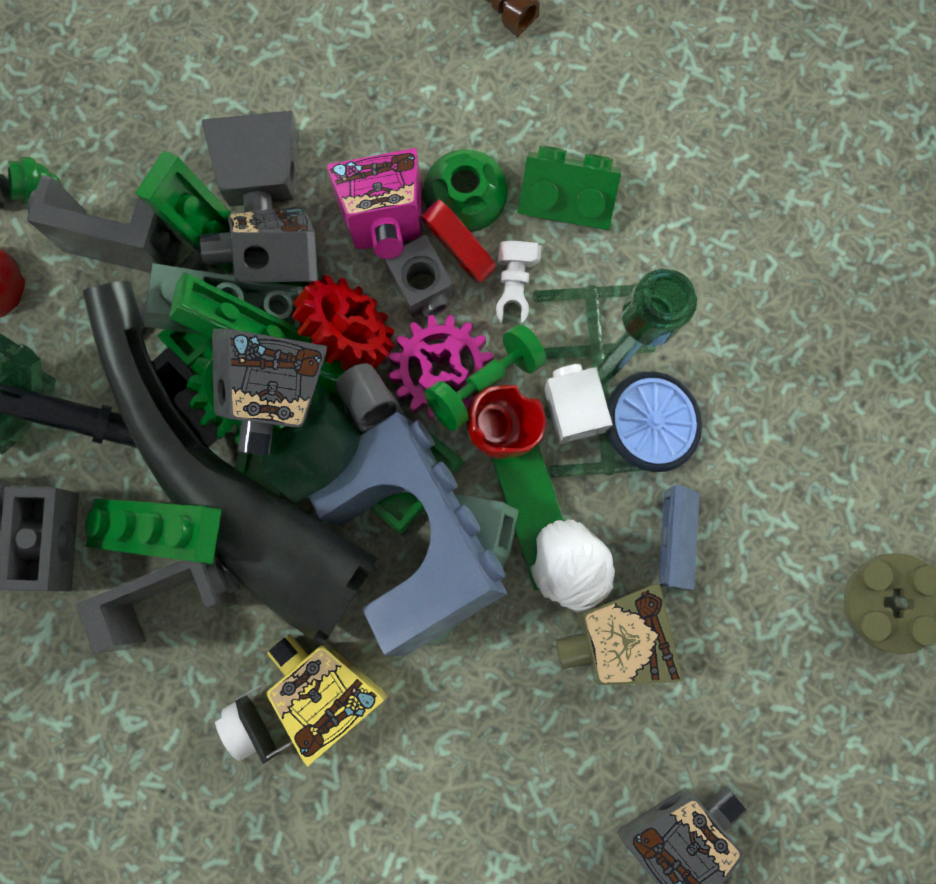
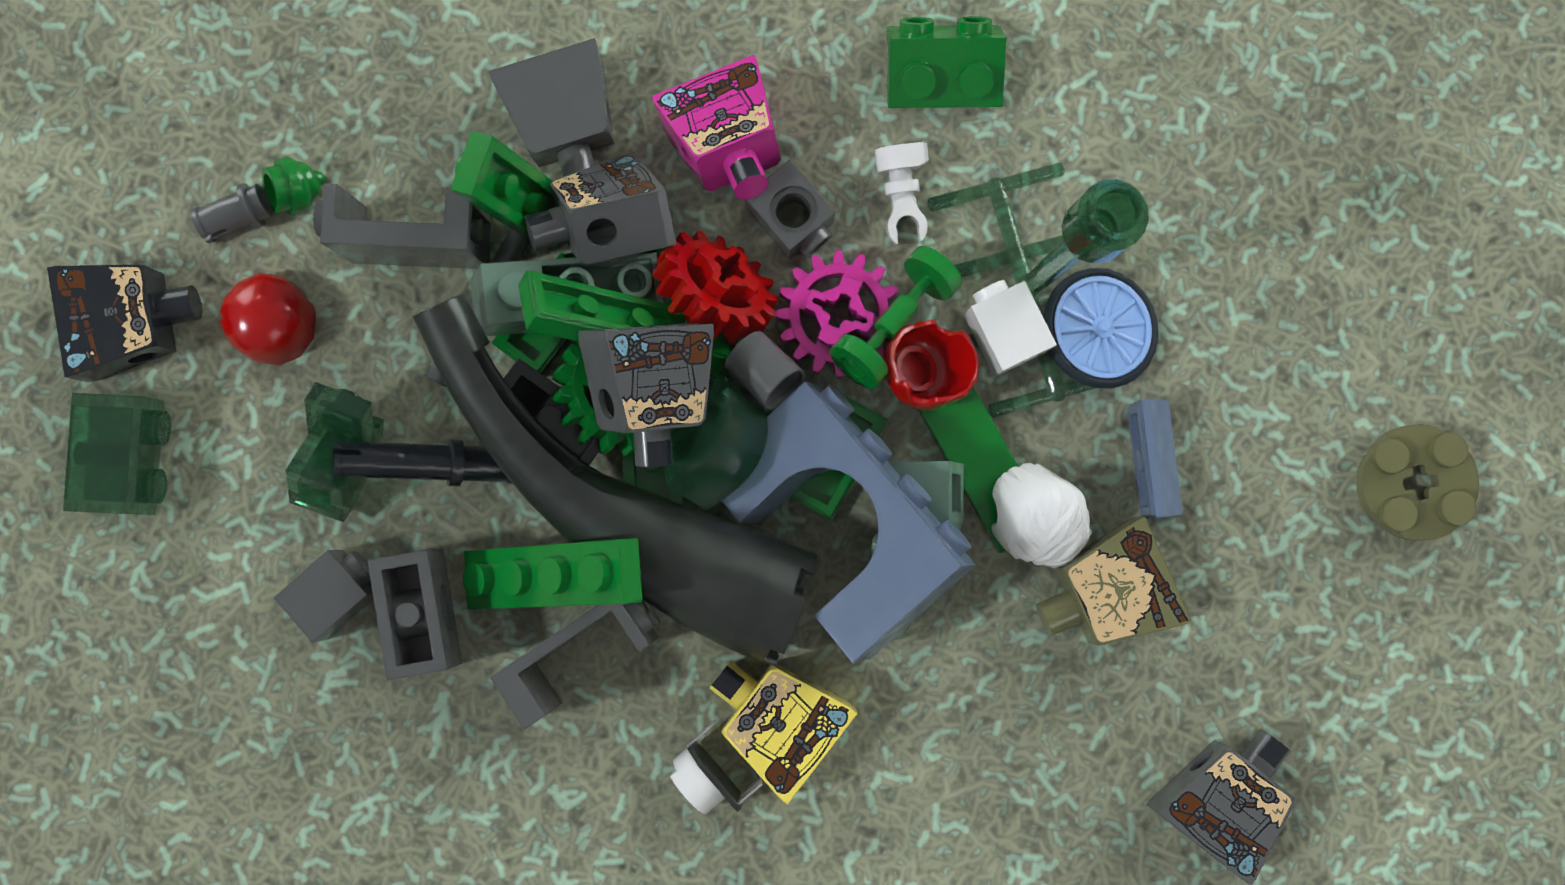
camera: 10 degrees left, 5 degrees up
(458, 241) = (828, 158): red beam -> none
(475, 208) = (815, 118): green piece -> none

